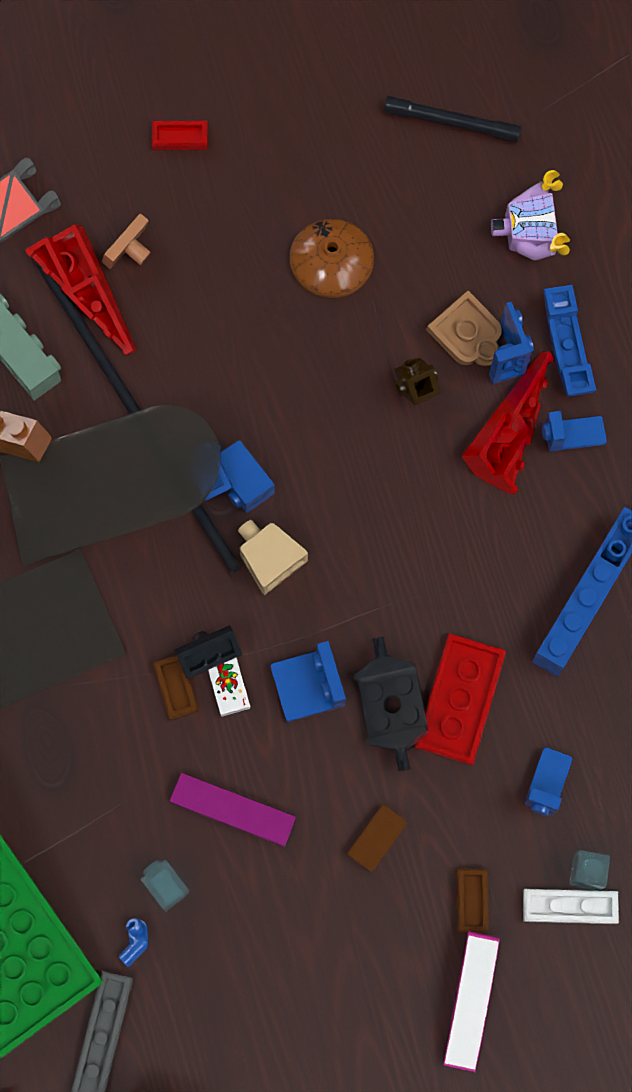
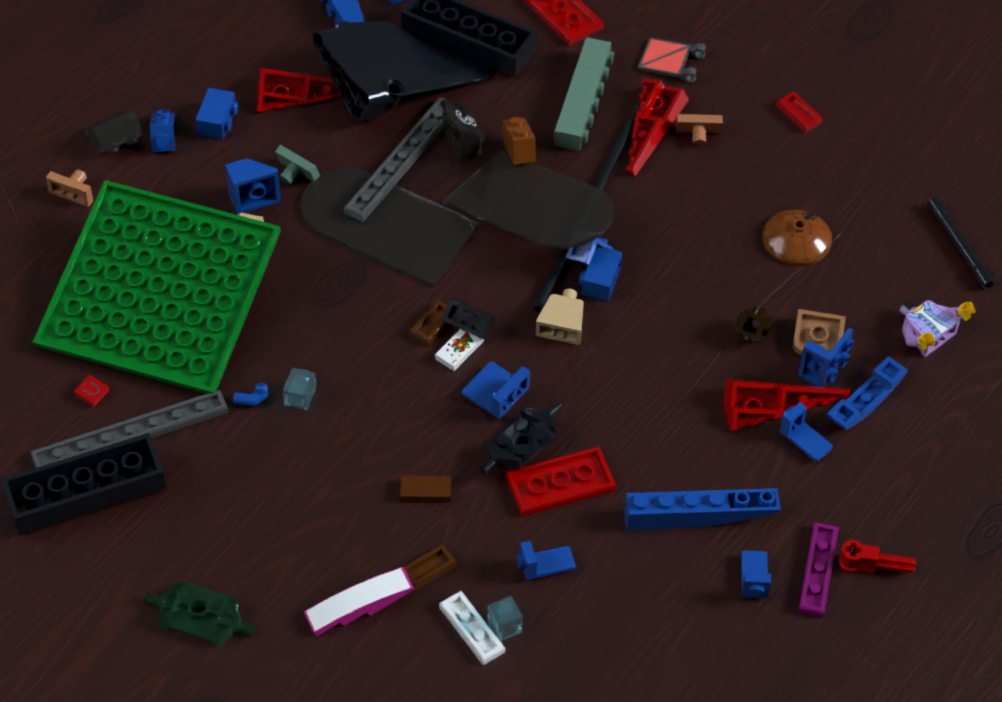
camera: 55 degrees right, 20 degrees down
(232, 810) = (379, 399): magenta tile -> none

